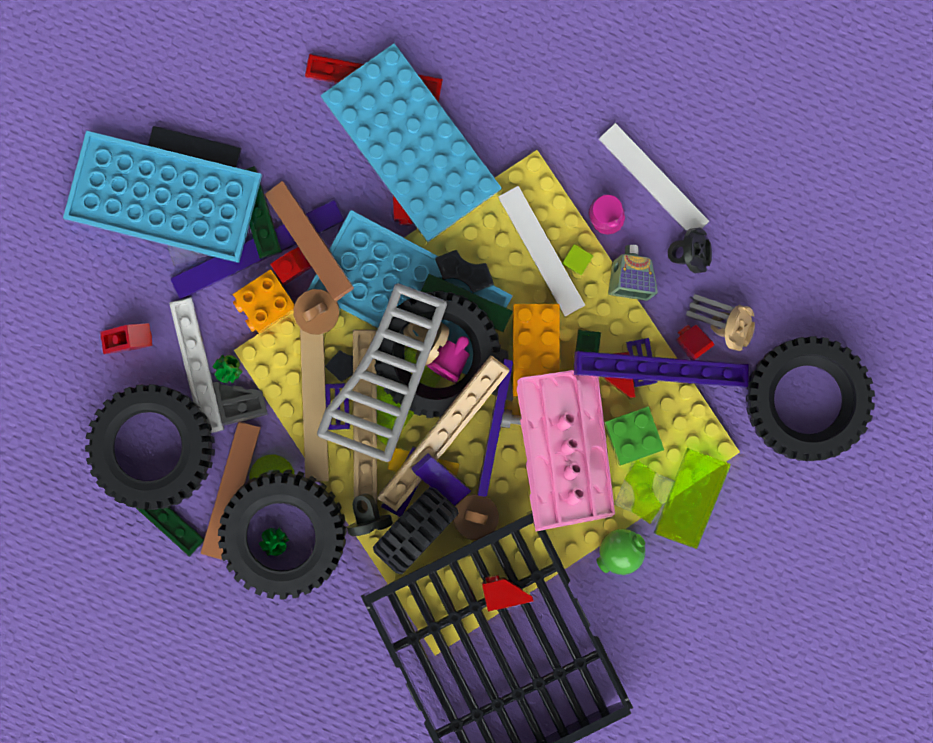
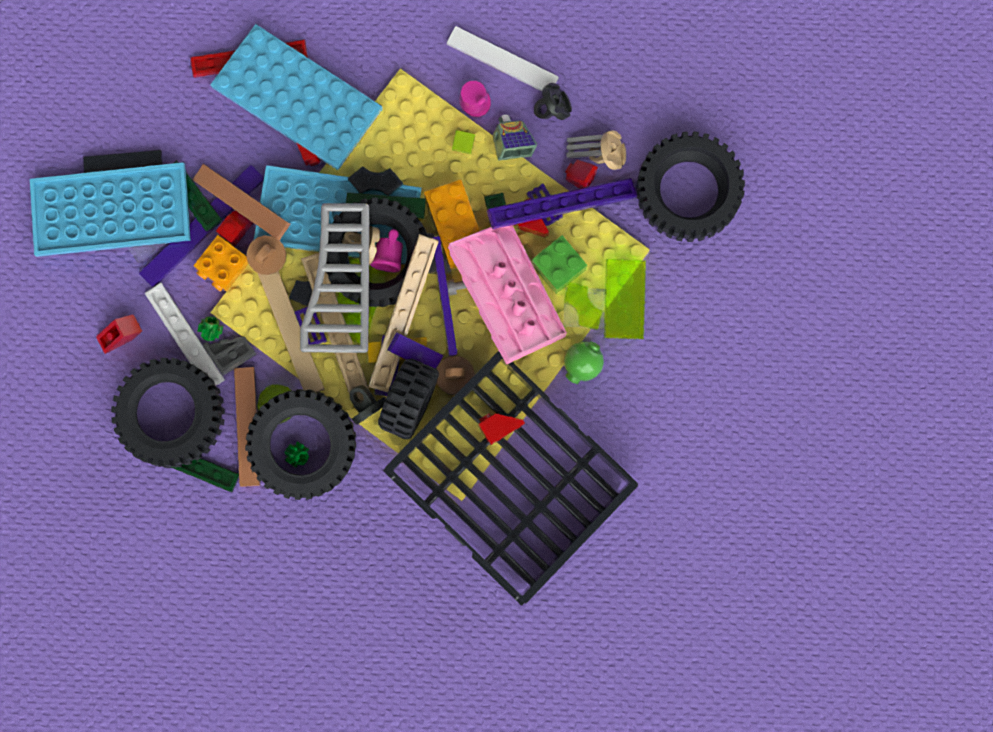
camera: 20 degrees left, 5 degrees down
(541, 251) = (432, 145): white tile -> none

